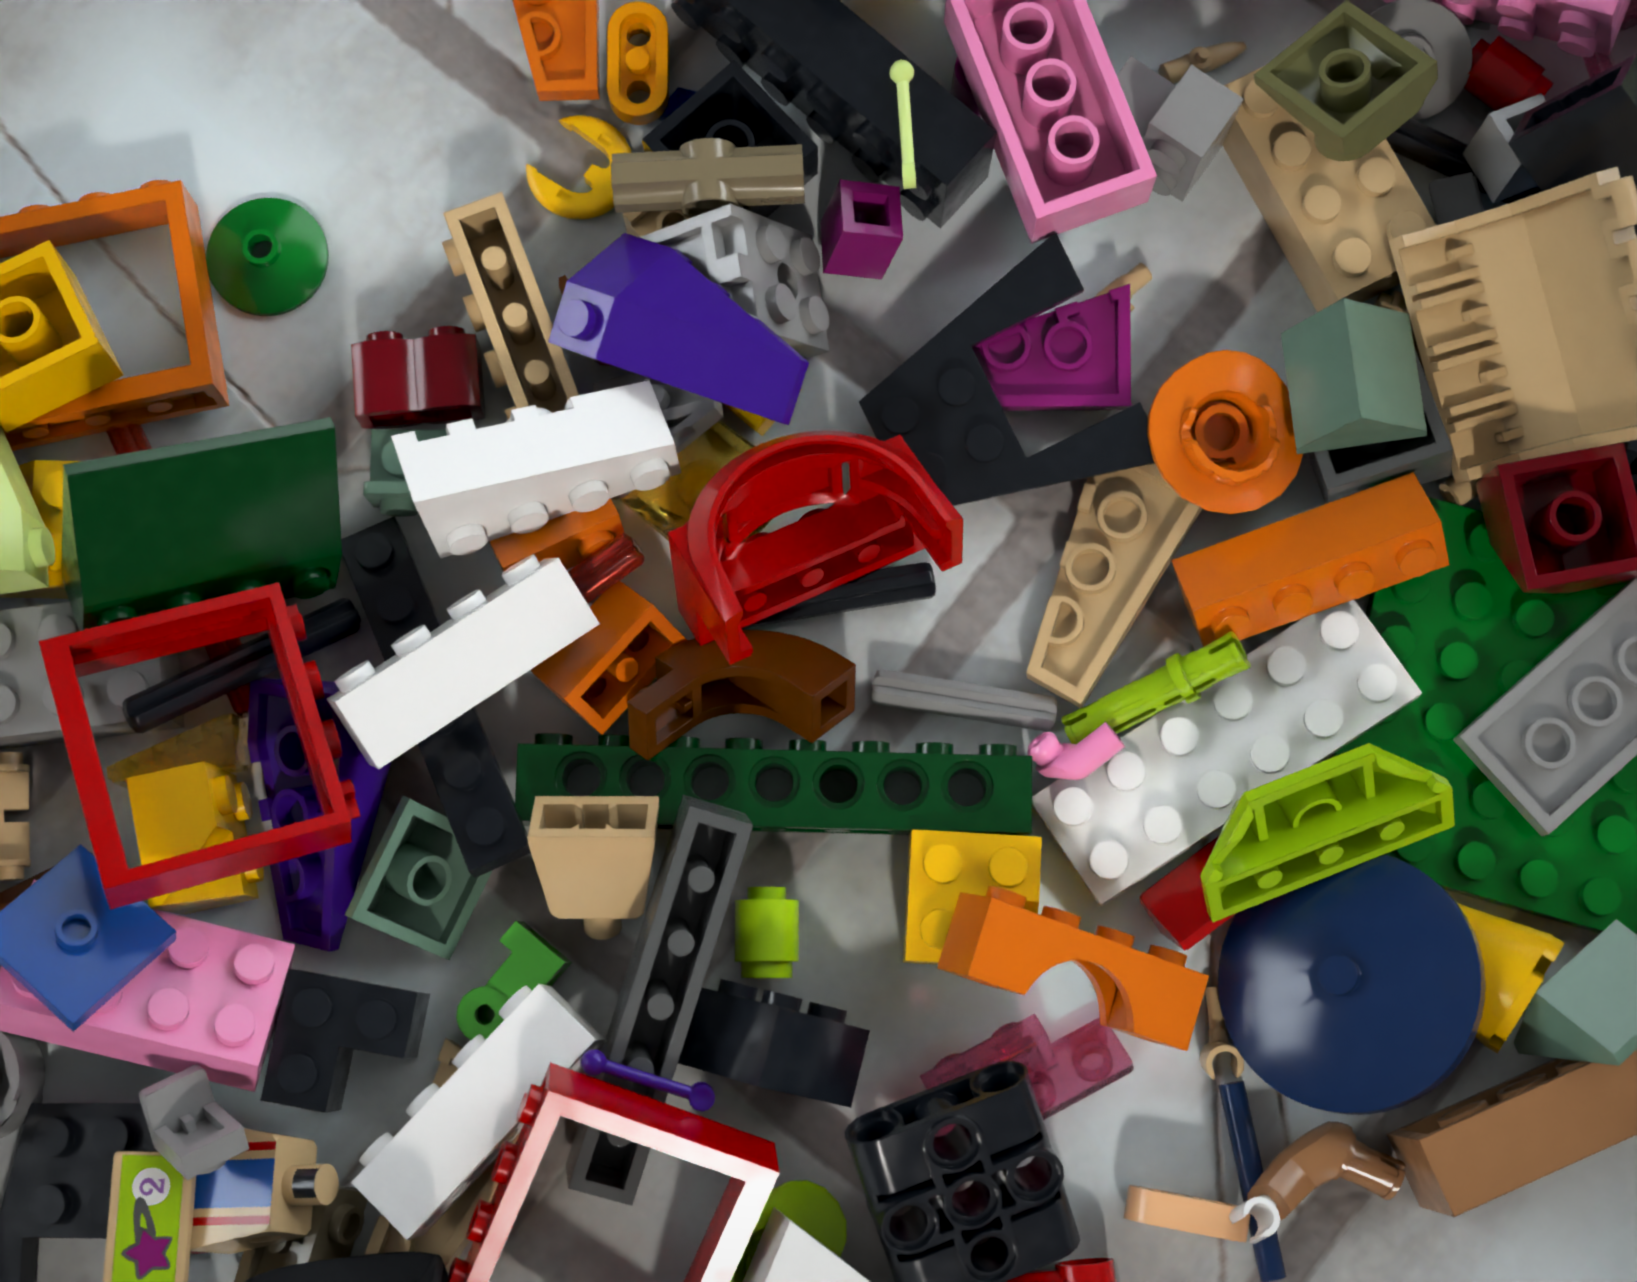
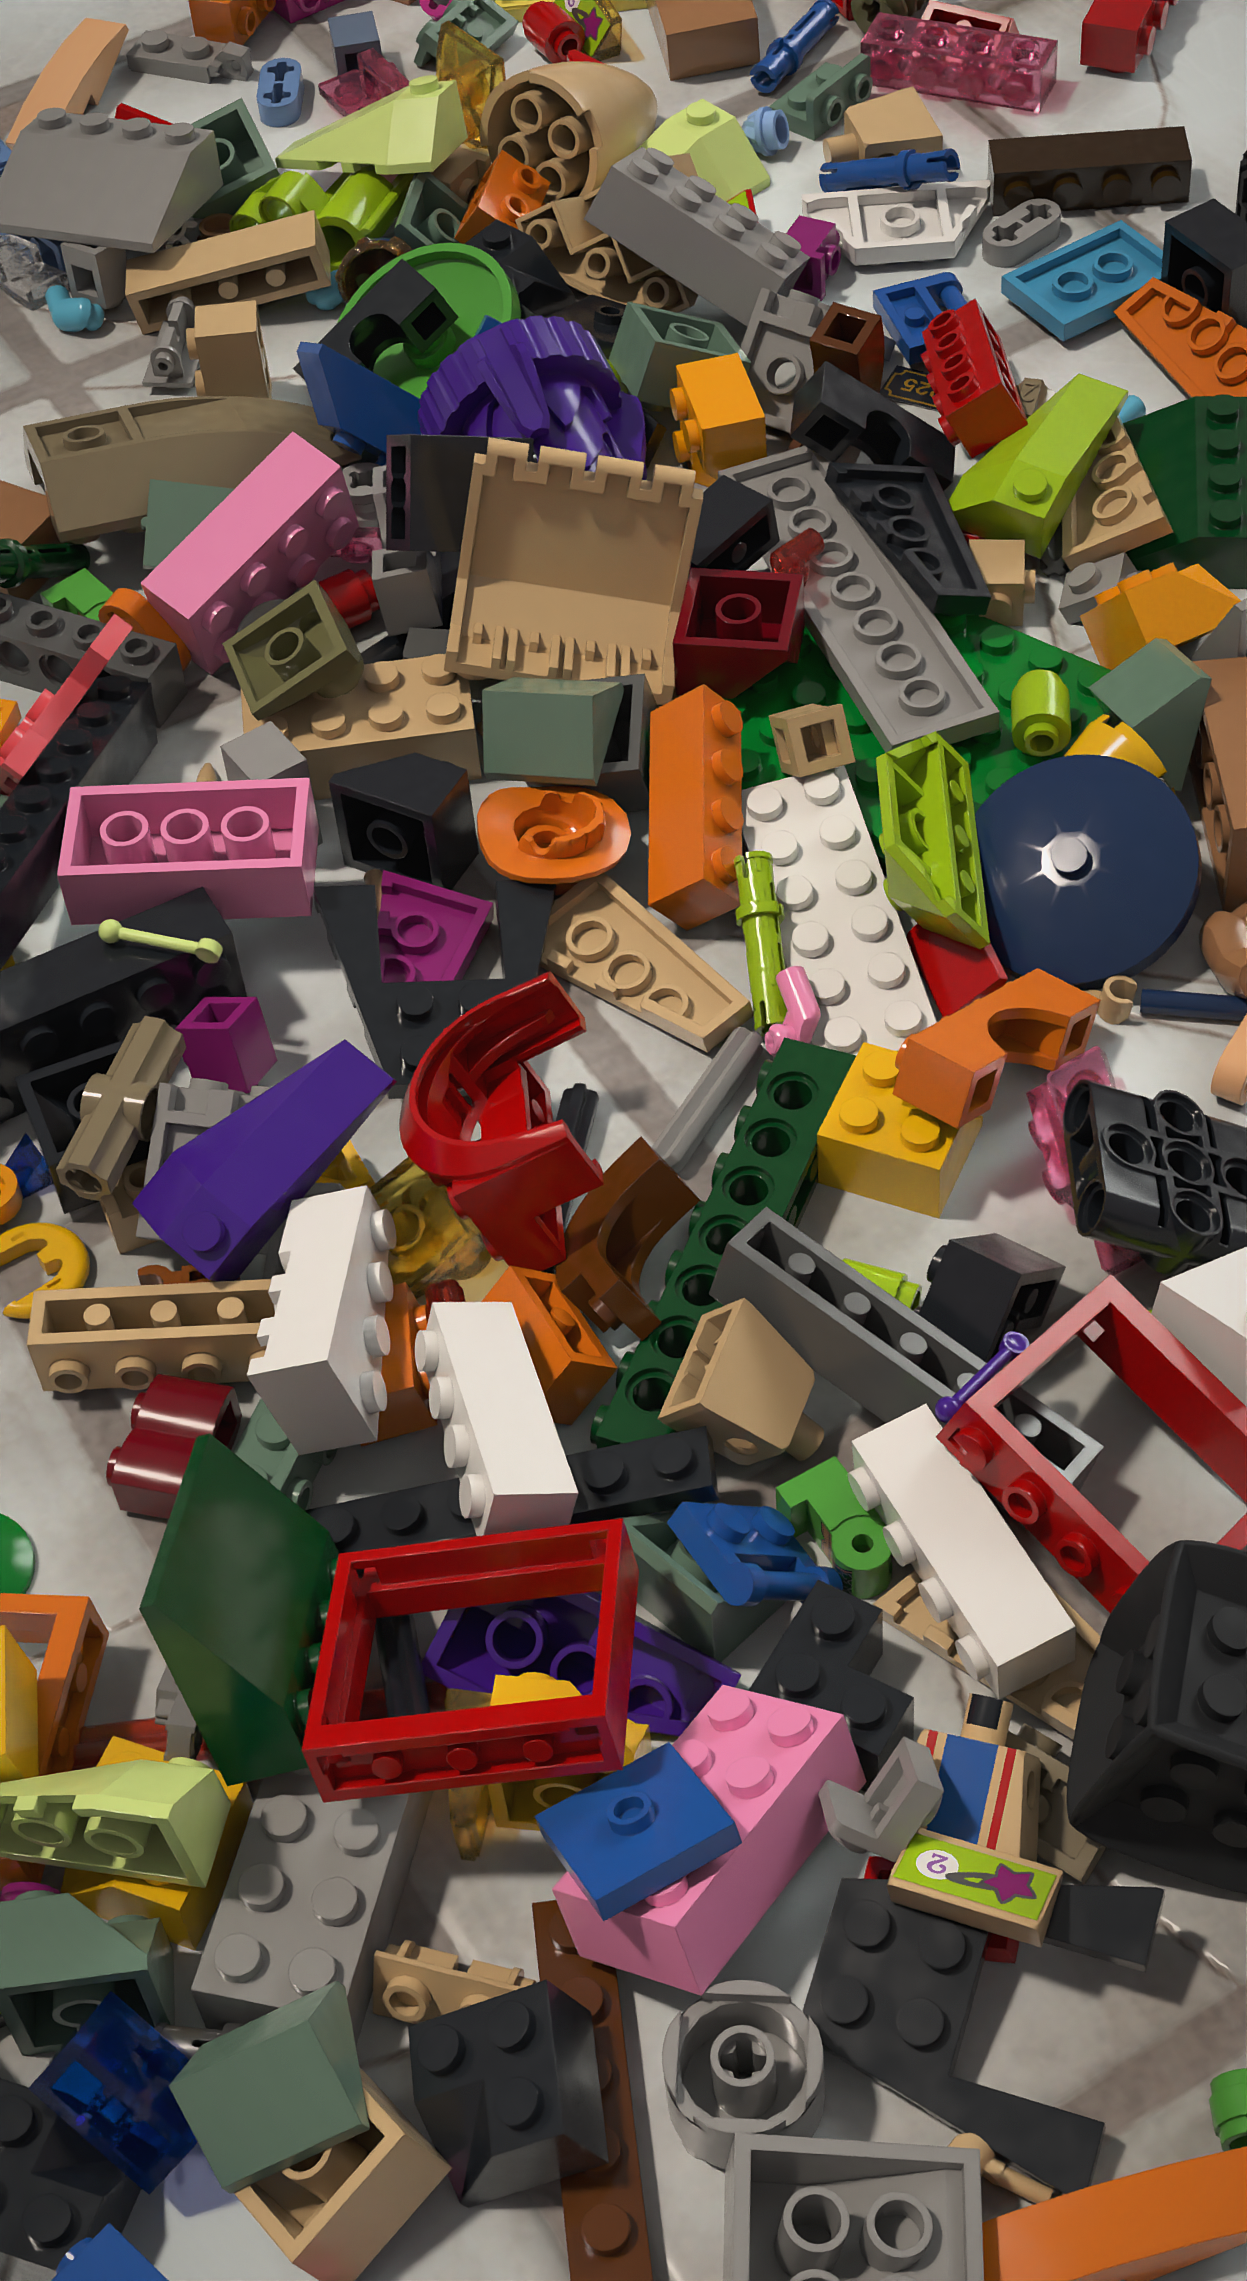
camera: 65 degrees left, 30 degrees down
(451, 907) = (748, 1552): none -> blue plate
(1199, 281) = (406, 818): none -> black slope
(1431, 652) = (811, 739): none -> tan brick
(1566, 877) = (1040, 713): none -> lime brick

